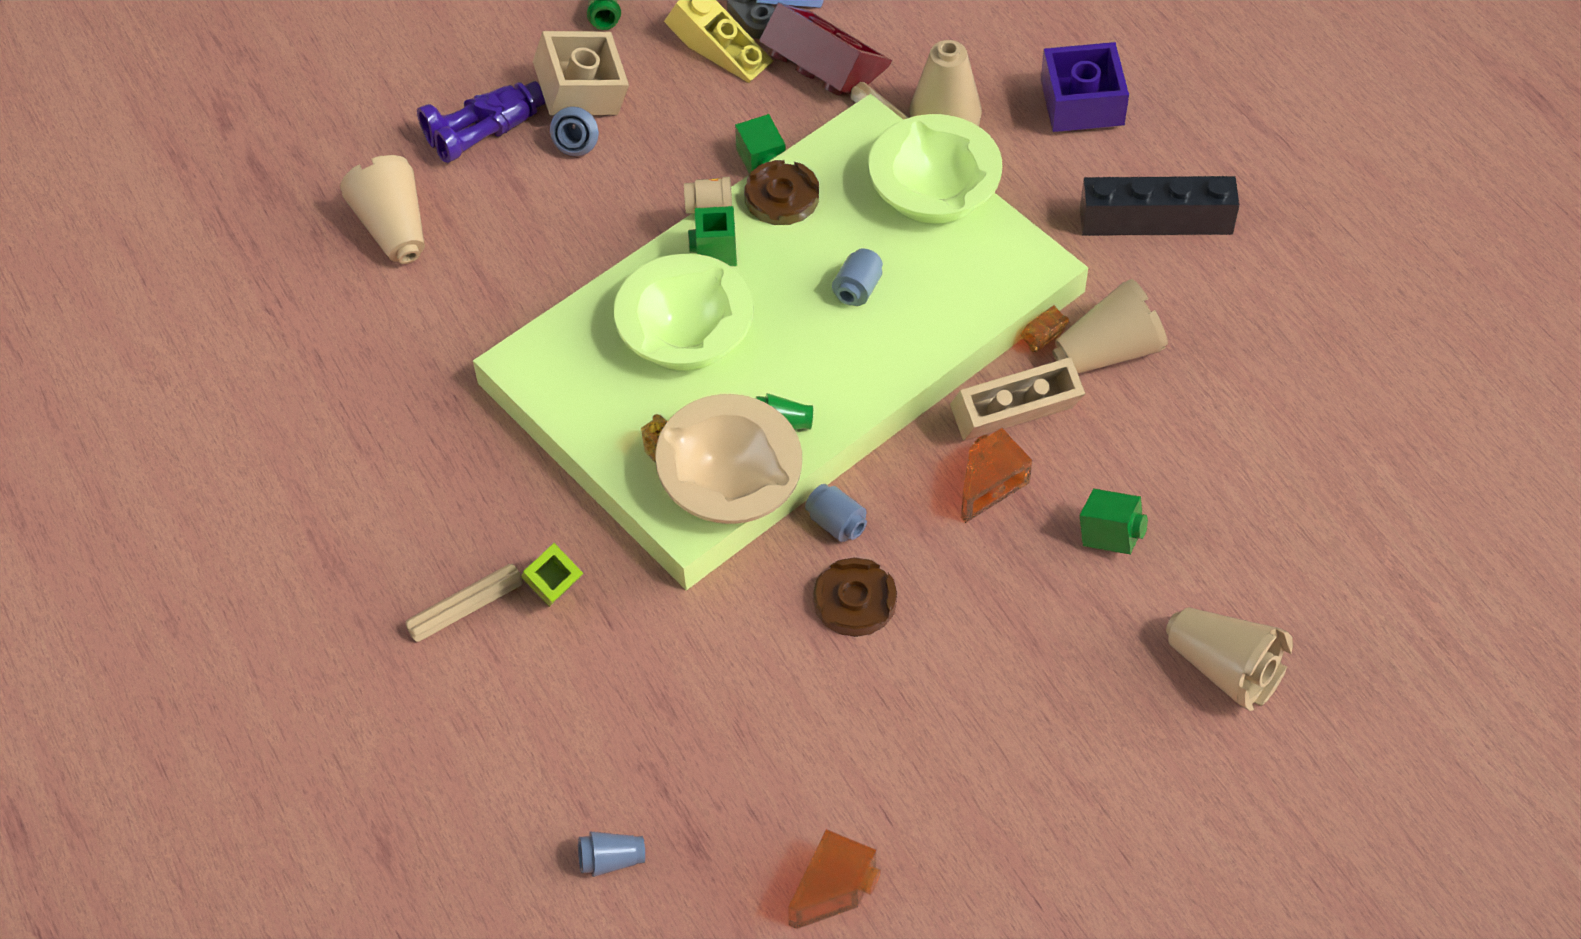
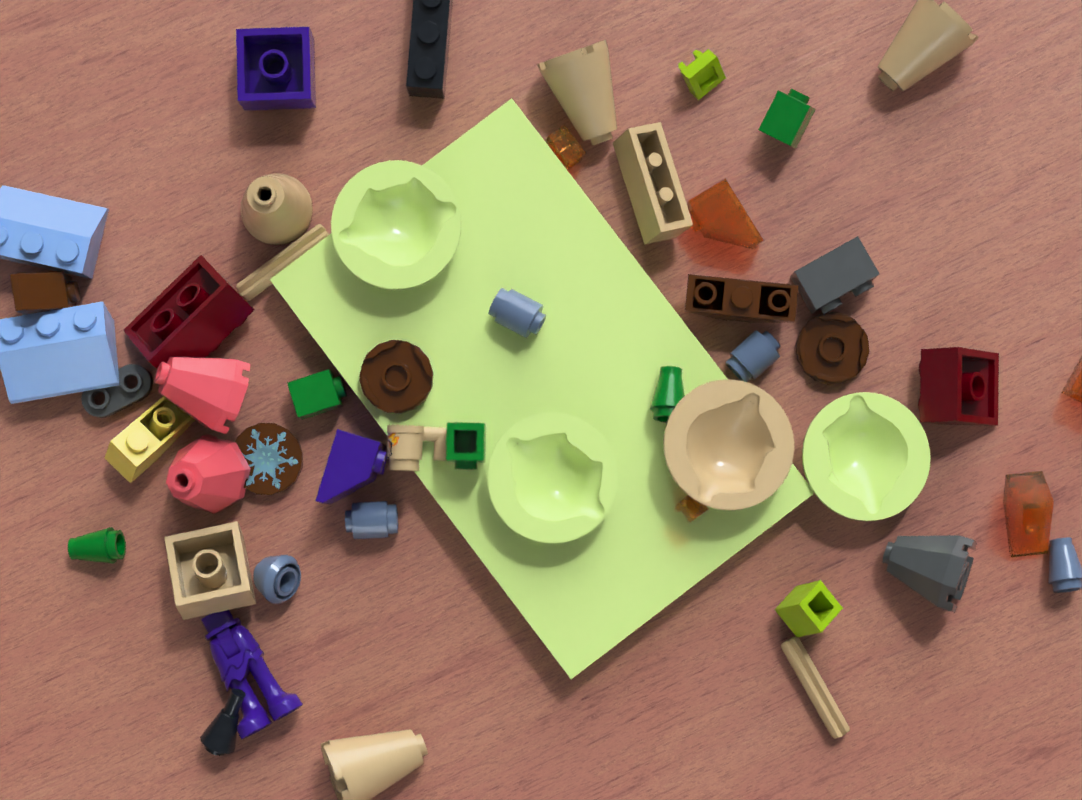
camera: 85 degrees left, 30 degrees up
(417, 96) = (222, 732): none -> black cone
(599, 705) = (932, 566): none -> dark grey cone
(636, 200) = (372, 520): none -> sand blue brick
(672, 61) = (208, 474): none -> coral cone
(673, 802) = (1027, 513): none -> clear orange slope
(682, 157) = (351, 466): none -> dark purple slope
(694, 121) = (272, 456): none -> reddish brown tile
(728, 619) = (866, 456): none -> yellowish green piece
(756, 51) = (204, 388): none -> coral cone
(820, 723) = (959, 386): none -> dark red slope
(898, 482) = (741, 299): none -> reddish brown slope
(938, 585) = (835, 275): none -> dark grey brick
(1149, 443) = (702, 73): none -> lime tile

